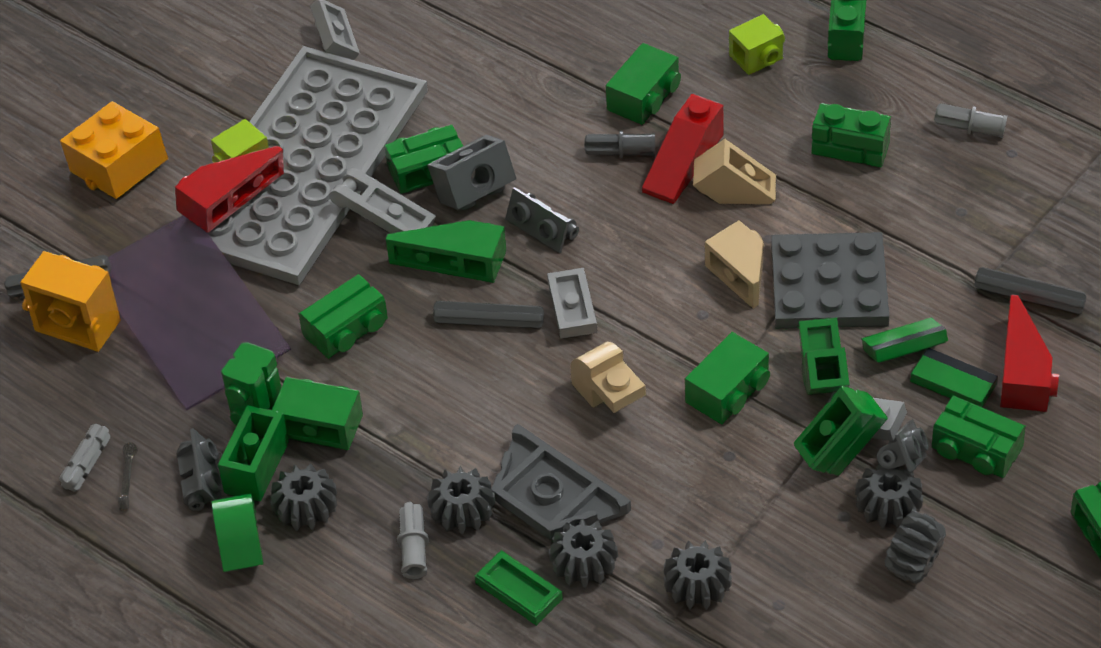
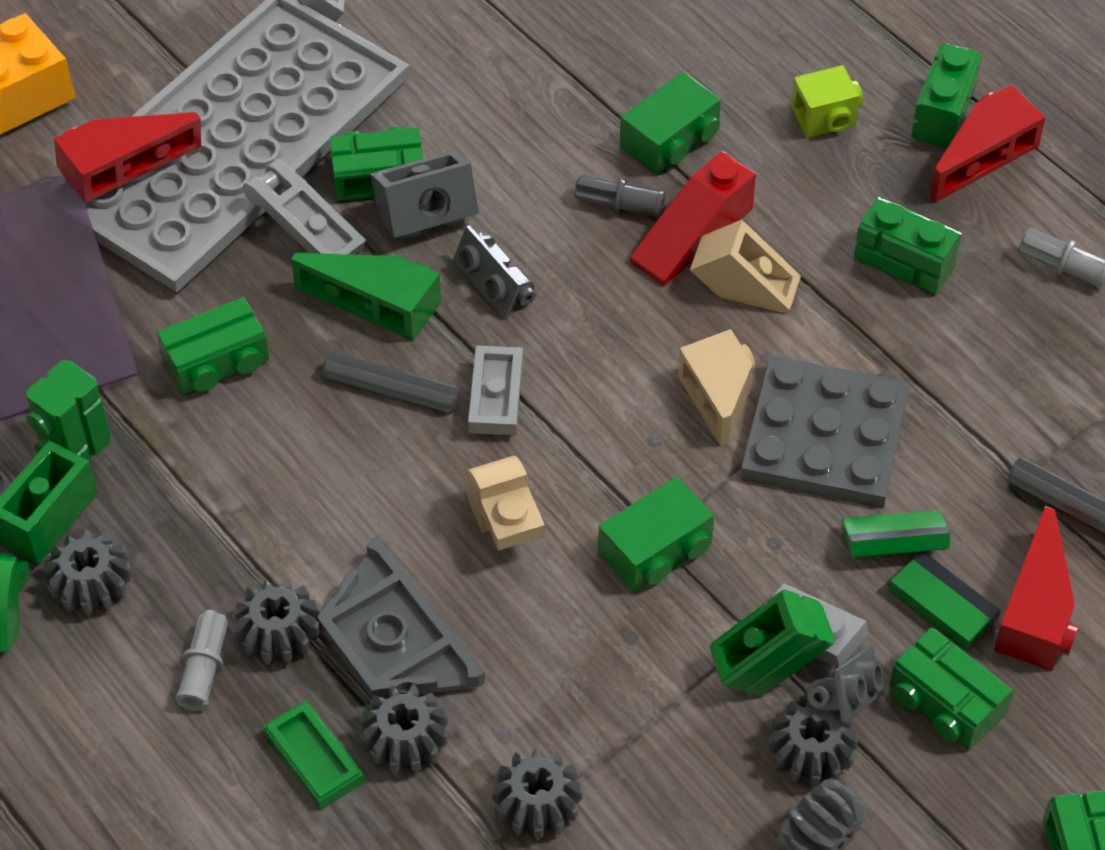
camera: 10 degrees right, 5 degrees up
(238, 141) = (152, 96): lime brick -> none
(319, 412) = (140, 465): green brick -> none
(822, 356) = (782, 534): green brick -> none
(891, 43) = (993, 135): none -> red slope

